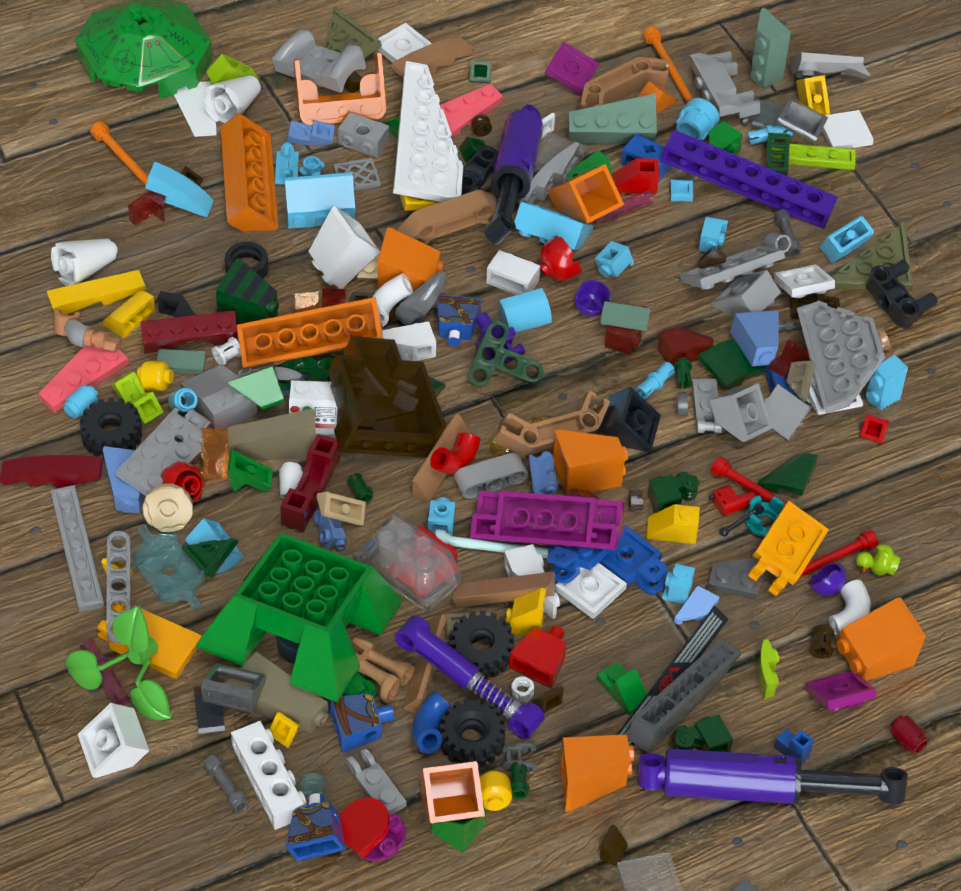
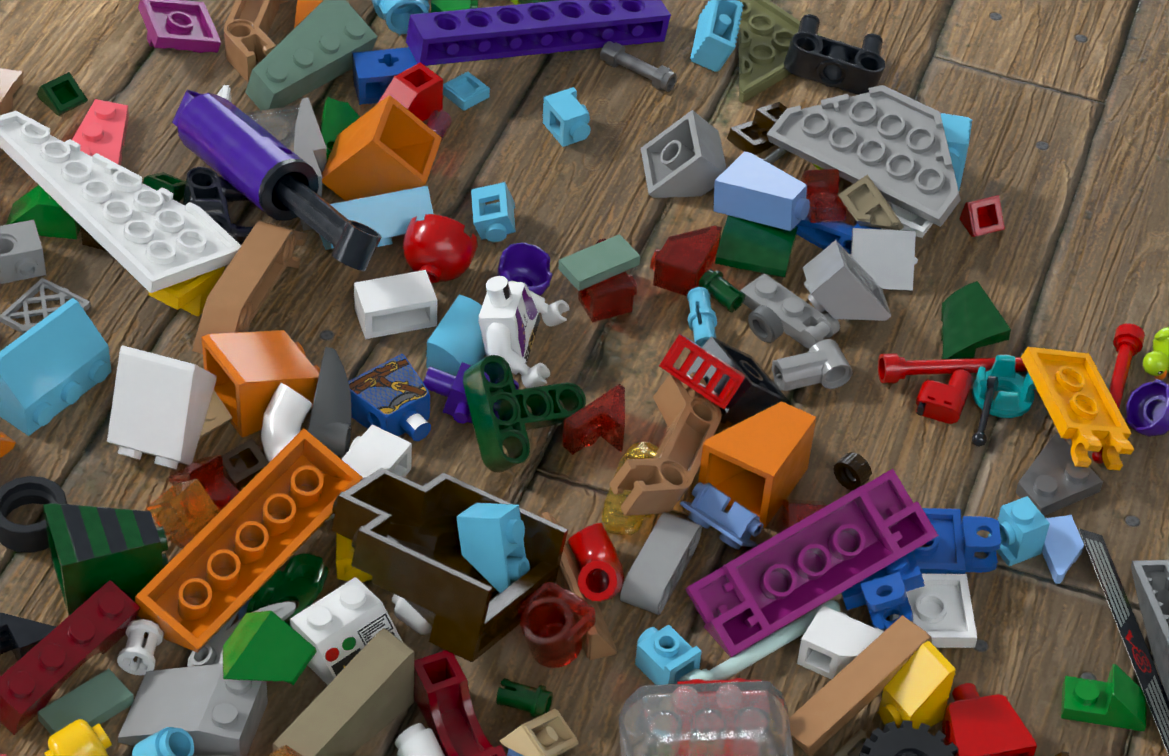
camera: 45 degrees left, 5 degrees down
(401, 466) = (551, 626): none -> clear red piece
(413, 408) = (494, 542): none -> medium azure slope
(486, 125) = (143, 154): dark brown bush -> none
(547, 392) = (600, 418): none -> clear red slope
(551, 318) = (511, 322): none -> white torso
(599, 416) = (709, 359): none -> red slope
(669, 490) = (879, 433): dark green brick -> none
(674, 524) = (933, 463): yellow slope -> none
(685, 442) = (821, 364): none -> light grey piece
(712, 257) = (597, 141): dark brown slope -> none
(739, 263) = (637, 128): light grey hinge -> none
(804, 281) = (730, 101): white plate -> none

